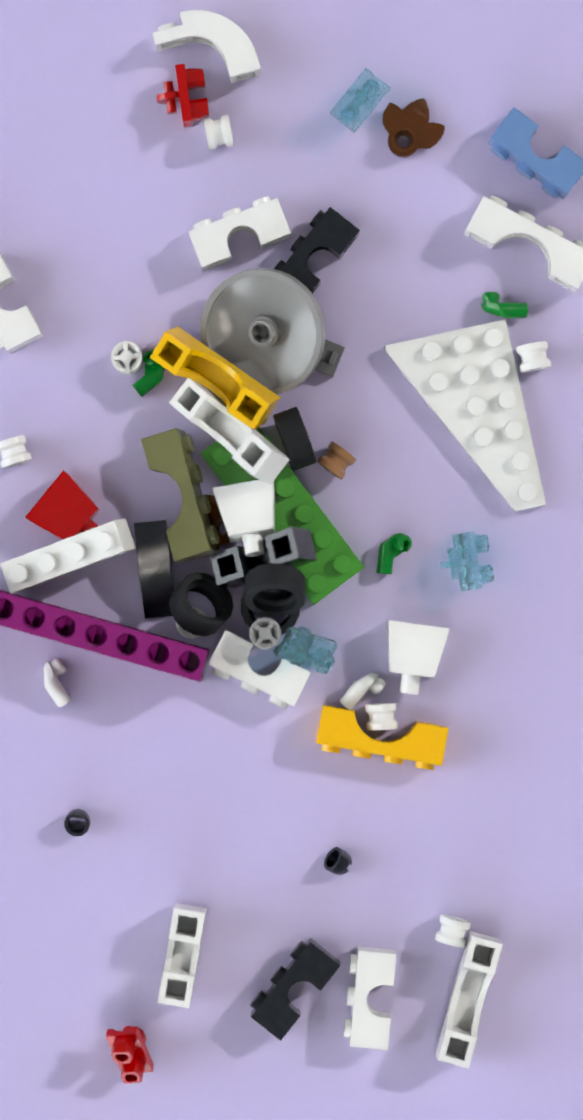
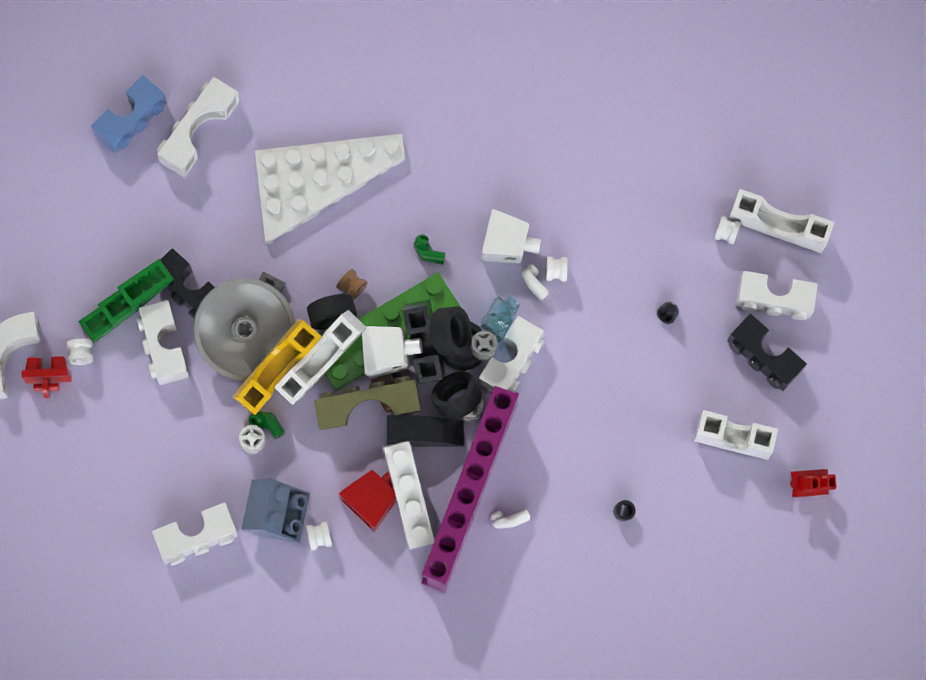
camera: 90 degrees left, 15 degrees down
(39, 395) = (275, 510): none -> sand blue slope
(287, 181) = (126, 301): none -> green slope
(360, 100) = (69, 241): clear light blue hips -> none
(414, 125) = (93, 206): reddish brown plate -> none
(422, 743) = (564, 297): yellow arch -> none
(464, 561) = (440, 194): clear light blue hips -> none
(503, 309) = (247, 151): green arm -> none
(533, 356) = (286, 131): white wheel -> none

